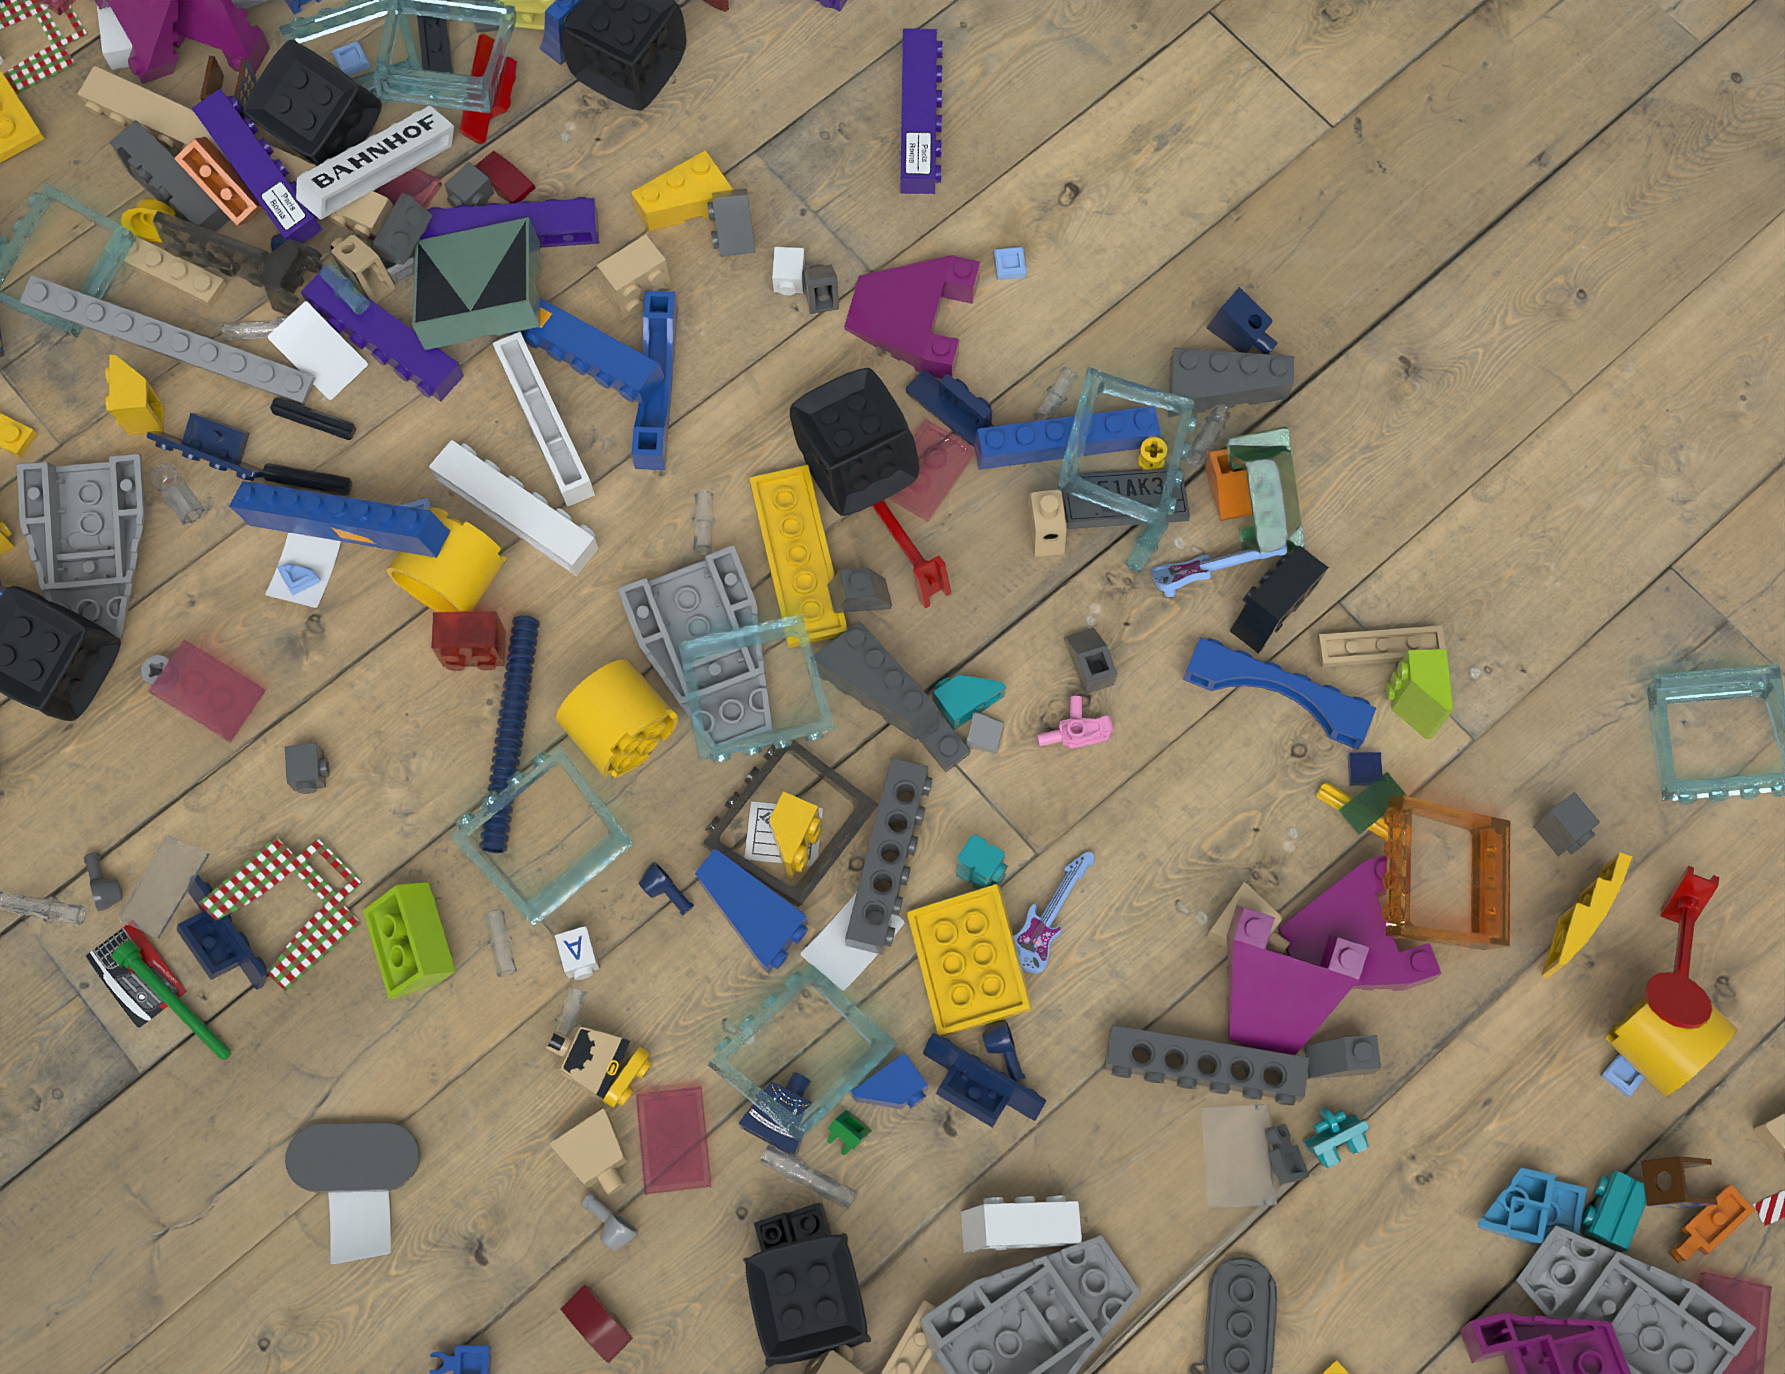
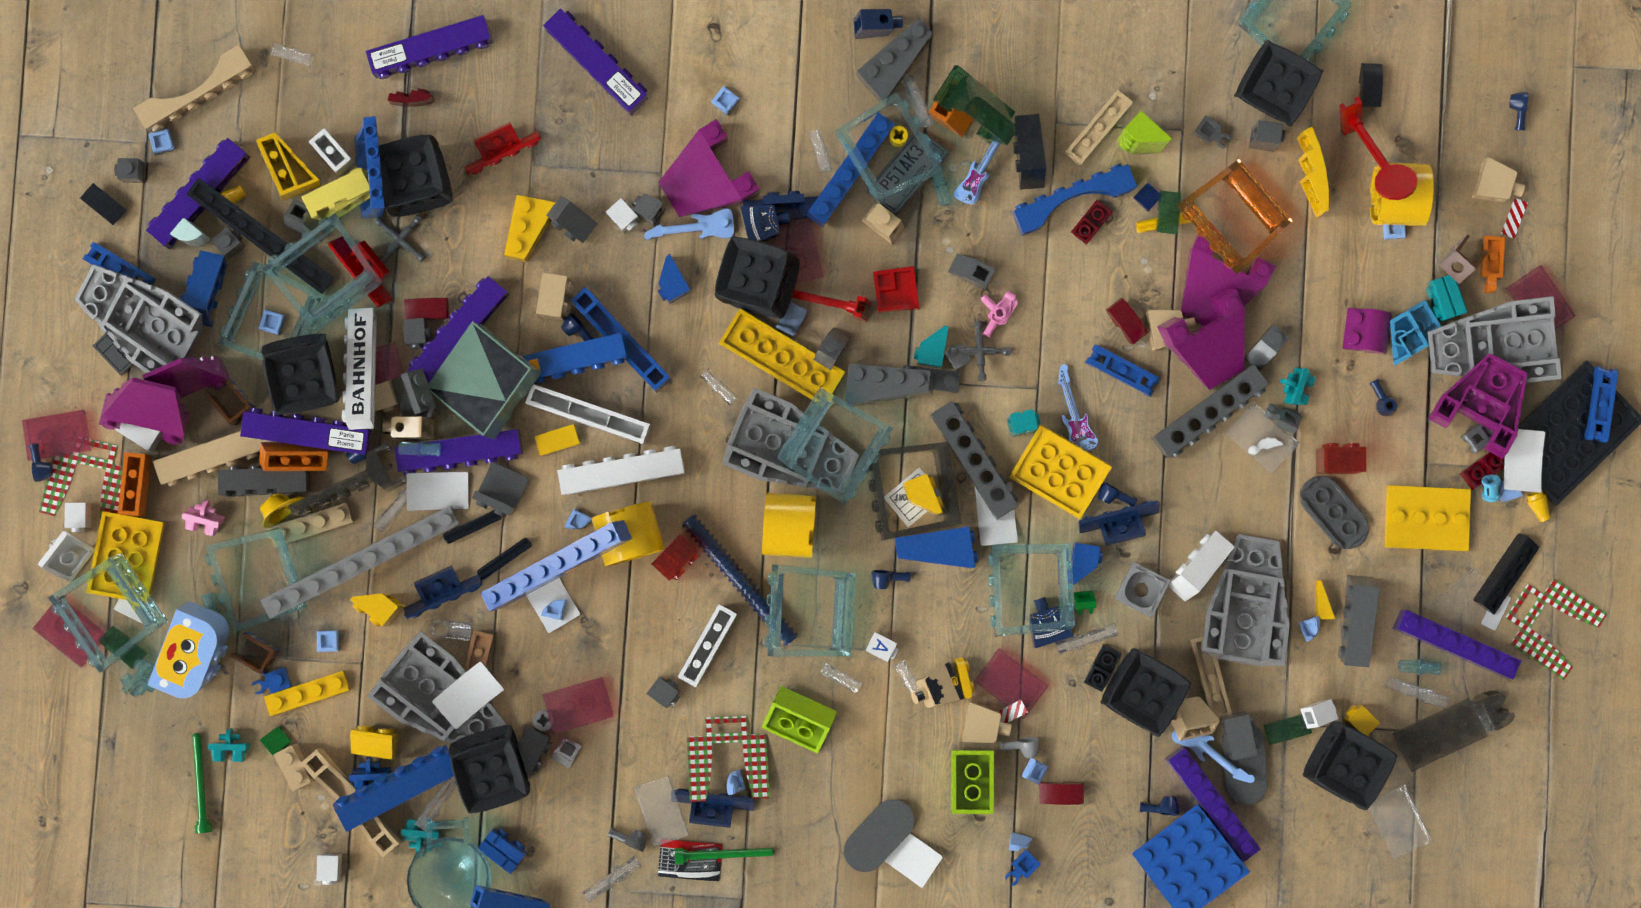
camera: 45 degrees left, 15 degrees up
(54, 73) = (134, 484): none -> orange brick
(54, 390) = (327, 641): none -> light blue tile
(83, 161) = (204, 515): none -> bright pink hips
(112, 567) = (467, 695): none -> white sticker
(115, 688) = (532, 746): none -> dark grey slope
(145, 730) = (566, 752): none -> light grey slope
(177, 543) = (479, 649): none -> medium nougat plate
(269, 938) = (735, 782): none -> light blue tile
(377, 410) = (501, 490): none -> dark grey bracket
(401, 763) = (707, 645): none -> white brick
(487, 418) = (557, 440): none -> yellow tile
(491, 1328) = (1018, 842): none -> light blue tile
(512, 1201) = (972, 781): none -> lime brick
(553, 97) = (400, 239): none -> dark grey piece
(594, 1265) = (1034, 771): none -> light blue tile
(625, 326) = (573, 325): none -> dark blue bar
(640, 1172) = (1013, 711): none -> sticker
(741, 96) = (499, 144): none -> red bracket
(768, 376) = (672, 282): none -> blue slope
(849, 528) = (792, 319): none -> sand blue bracket
(864, 356) = (718, 224): none -> light blue piece
(923, 402) = (763, 222): none -> dark blue torso
(933, 1161) = (1156, 588): none -> light grey piece
(990, 602) = (896, 289): none -> red plate
(1014, 748) = (980, 351): none -> dark grey piece
(1151, 923) = (1122, 370): none -> blue plate
(1210, 874) = (1128, 321): none -> dark red slope
(1236, 1165) = (1264, 443): none -> white piece
(1275, 736) = (1091, 222): none -> dark red slope
(1307, 1268) = (1341, 460): none -> clear red brick
(1427, 1251) = (1383, 399): none -> dark blue bar
(1482, 1155) = (1367, 330): none -> magenta brick
(1505, 764) = (1209, 130): none -> dark grey plate
(1637, 774) = (1279, 83): none -> black piece
(1745, 889) = (1371, 84): none -> black slope

